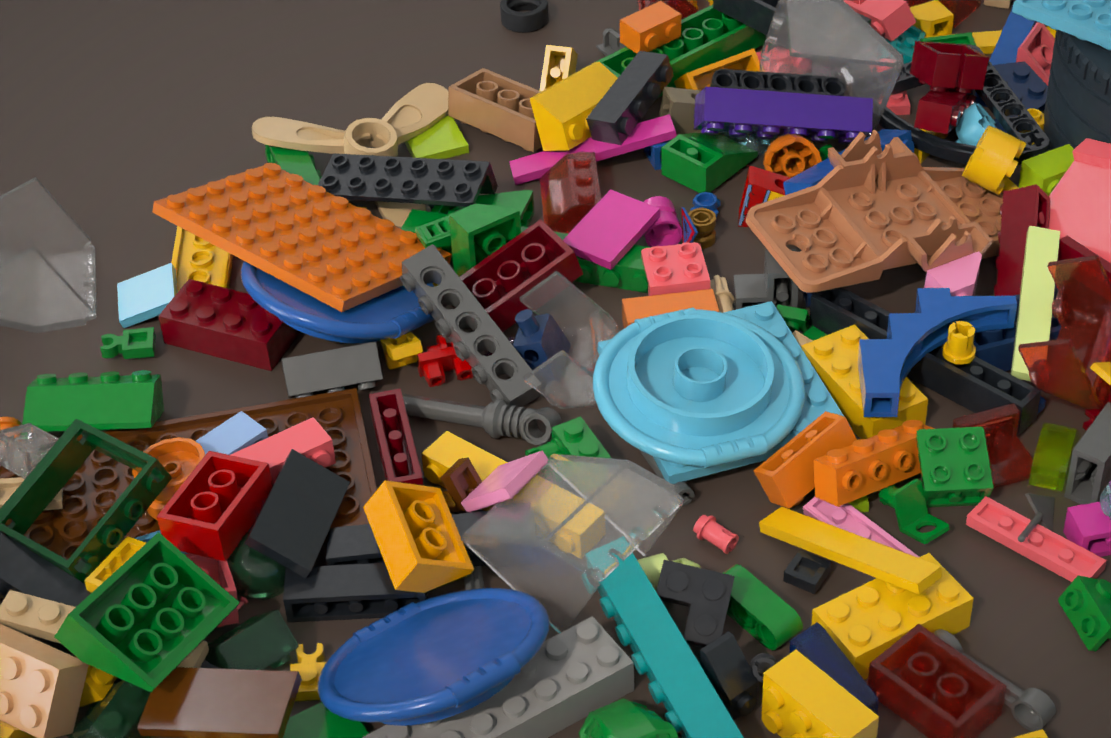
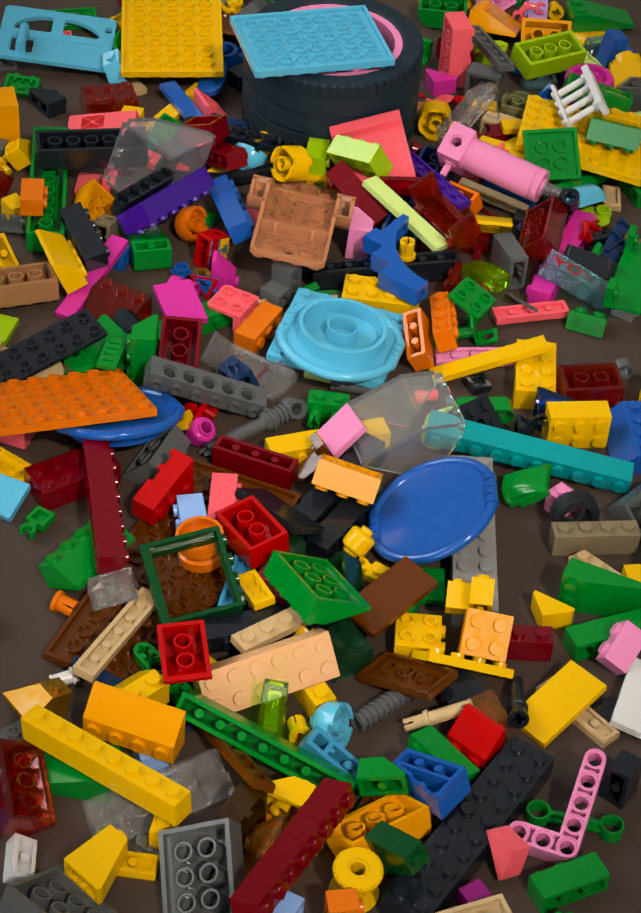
camera: 60 degrees left, 0 degrees up
(149, 361) = (104, 507): none -> dark red brick
(264, 394) = (158, 495): none -> red wedge
(336, 621) = (358, 541): none -> yellow head
(408, 364) = (200, 431): none -> dark pink head
(544, 207) = (125, 319): none -> black window
(724, 232) = (224, 271): none -> dark pink slope
(1071, 197) = (360, 155): none -> lime wedge

